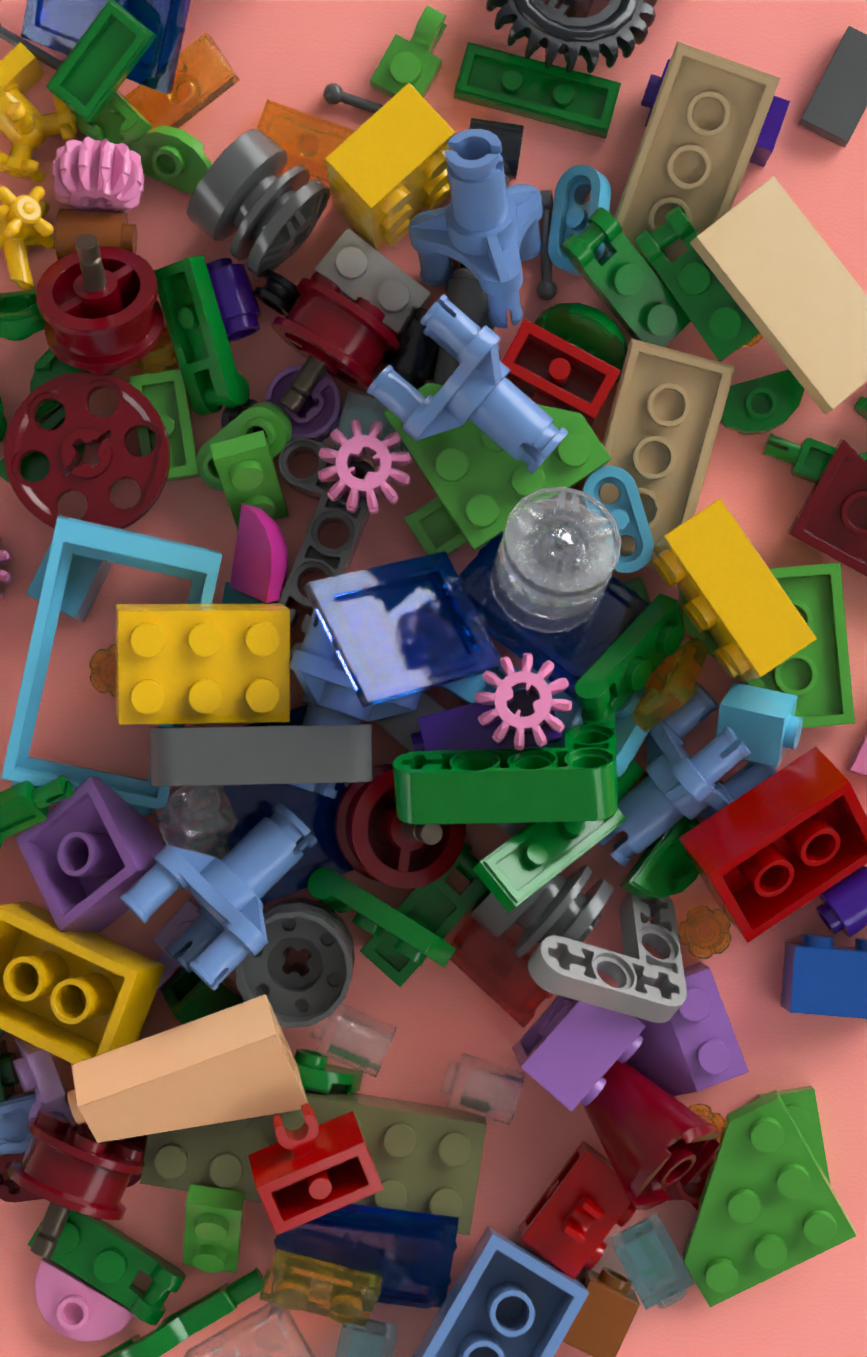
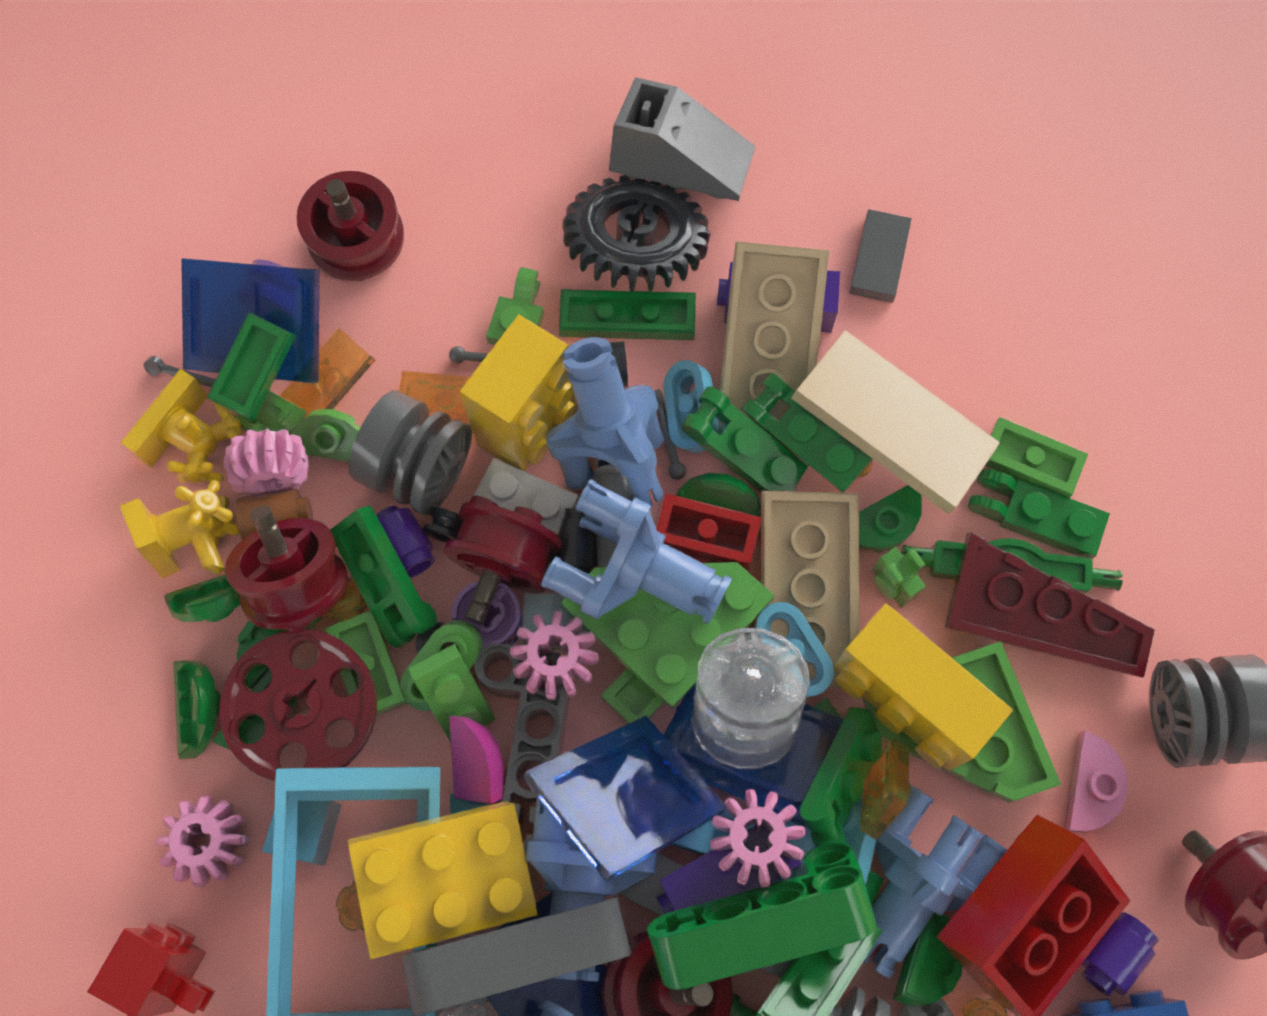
camera: 10 degrees left, 15 degrees down
(753, 467) = (898, 576): none -> bright green plate
(762, 721) = (979, 802): medium azure brick -> none

